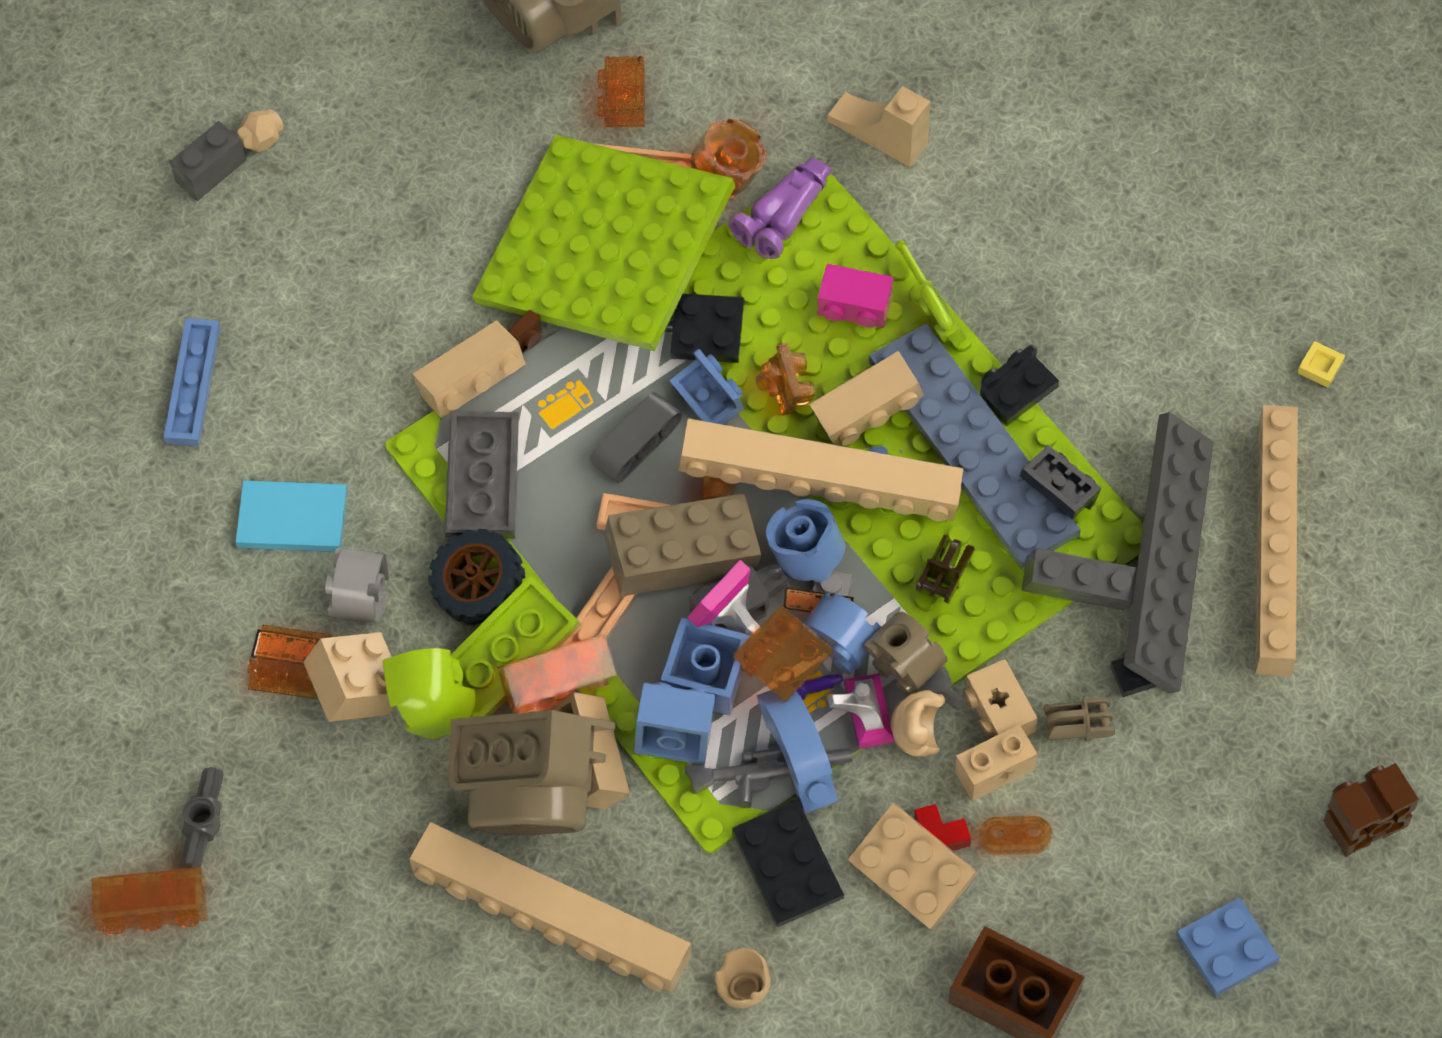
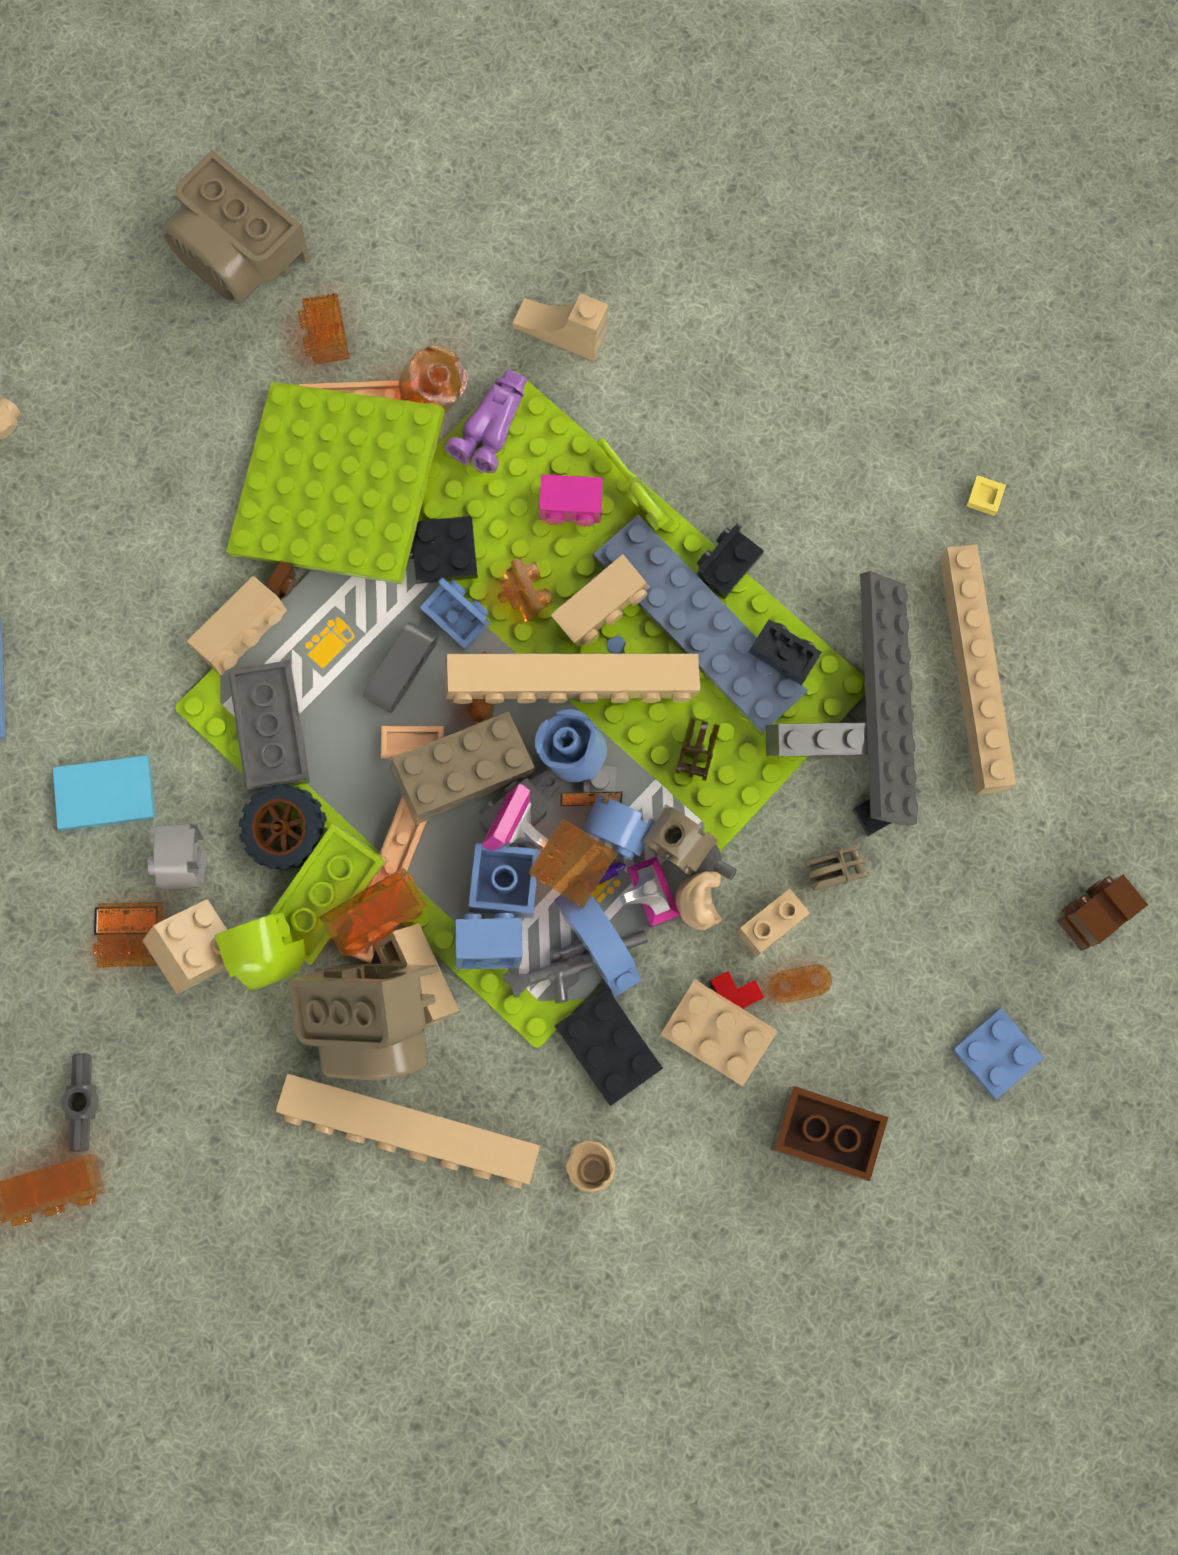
camera: 20 degrees left, 15 degrees up
(999, 685) = (766, 849): tan brick -> none

